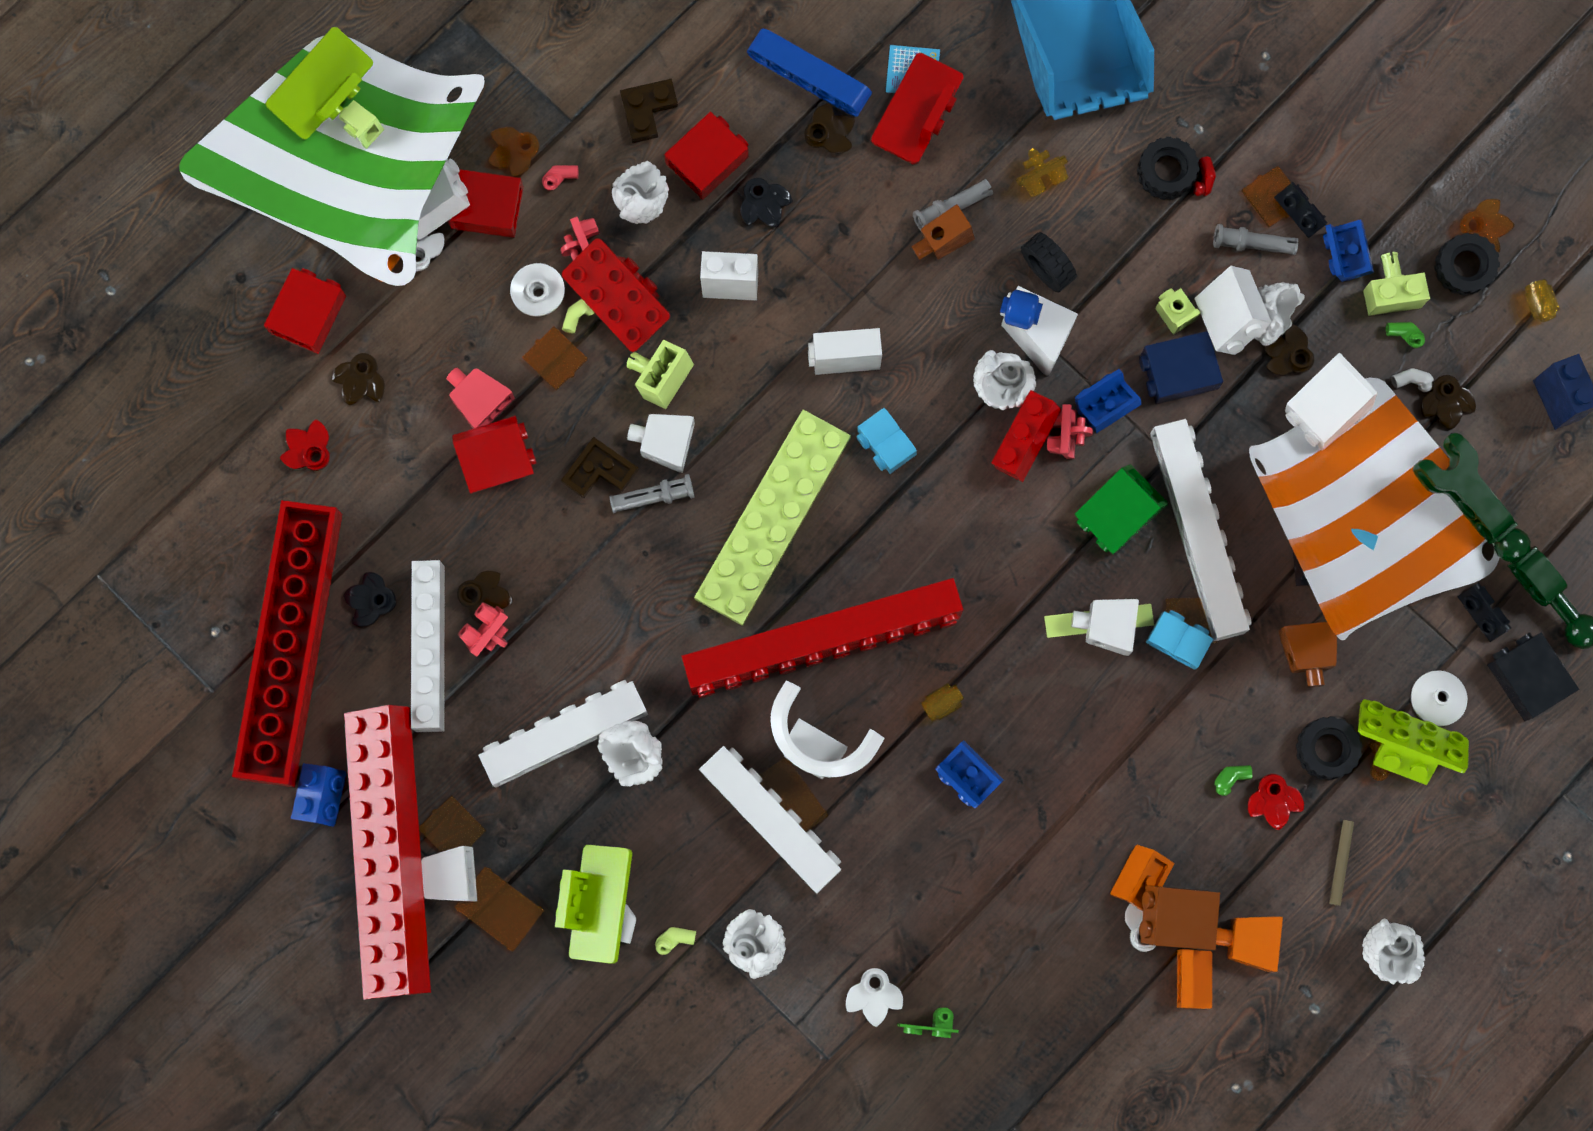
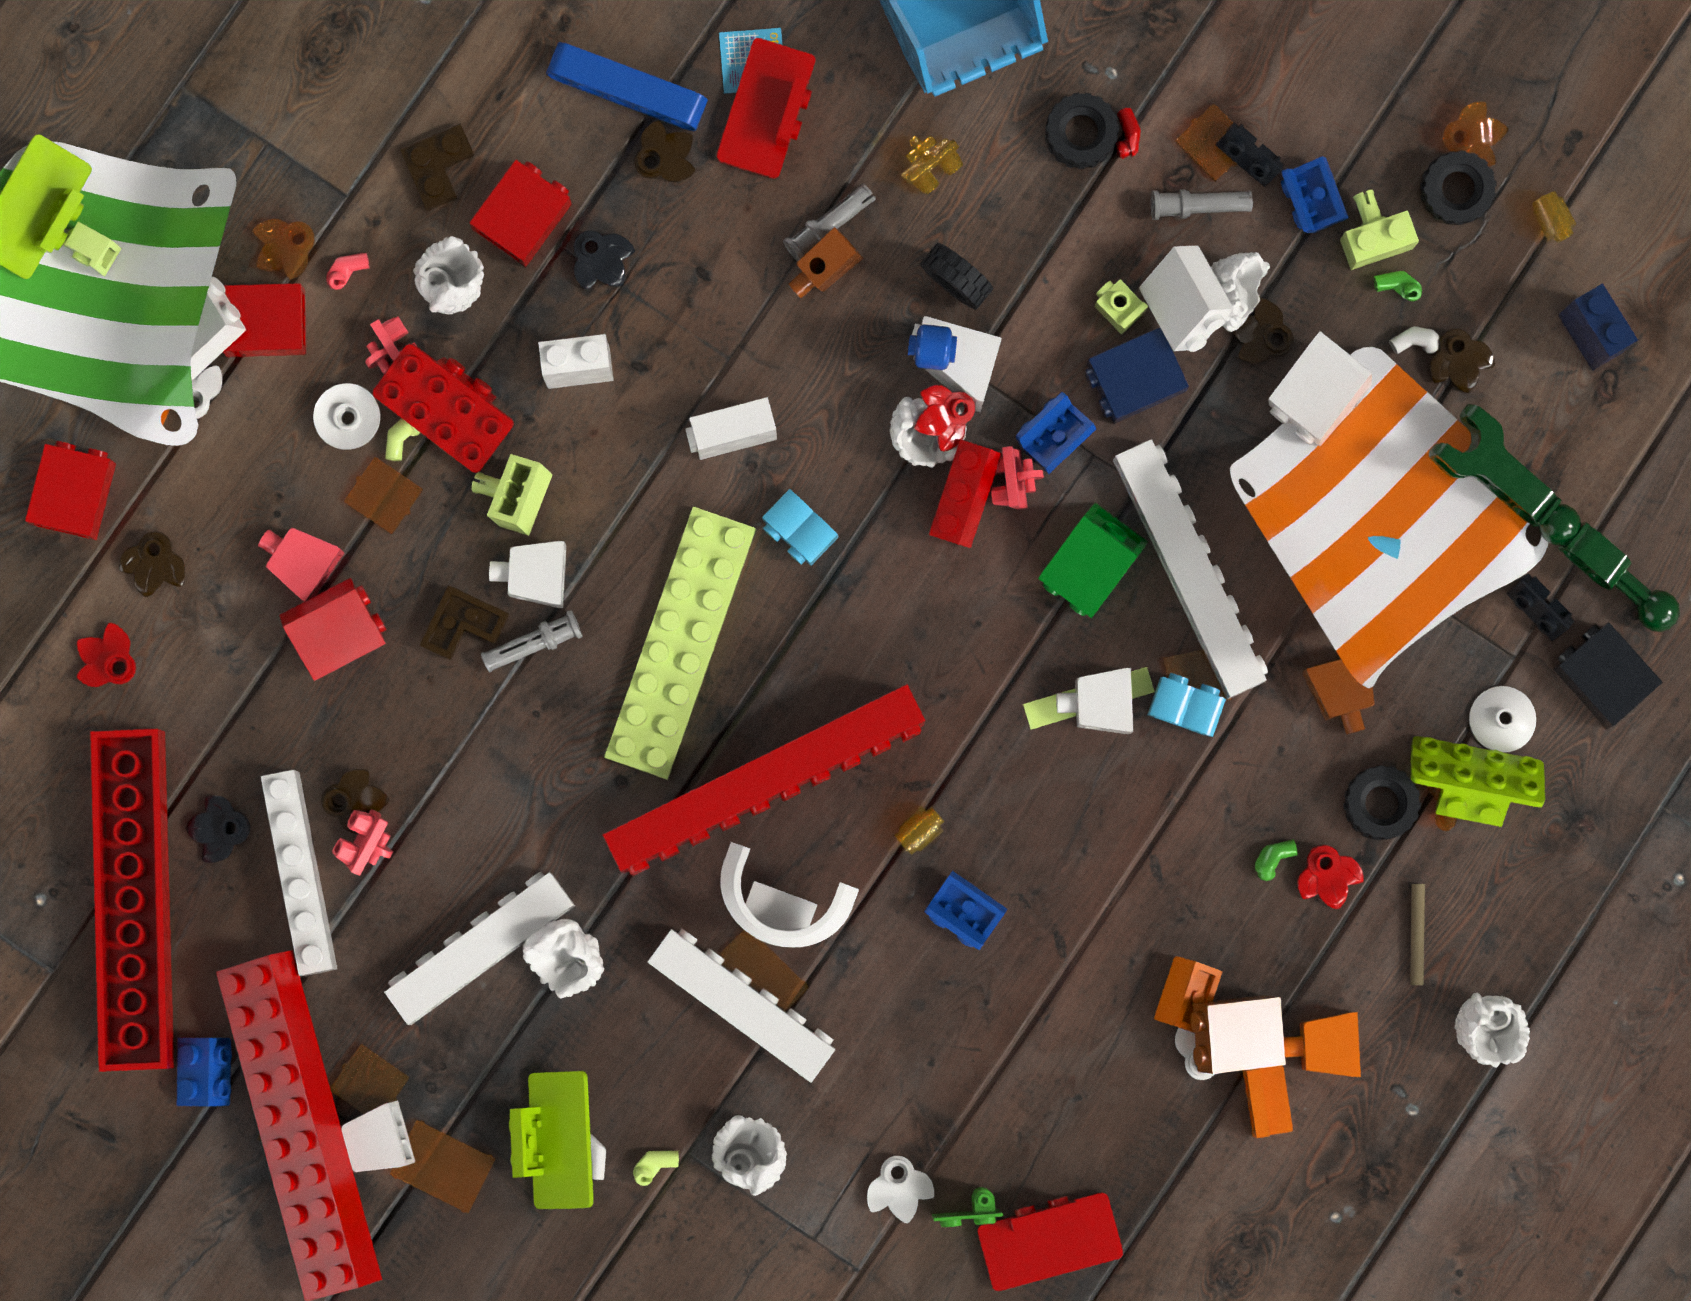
camera: 15 degrees left, 5 degrees up
(992, 1063) = (1050, 1240): none -> red bracket
(1018, 368) = (941, 416): none -> red plate

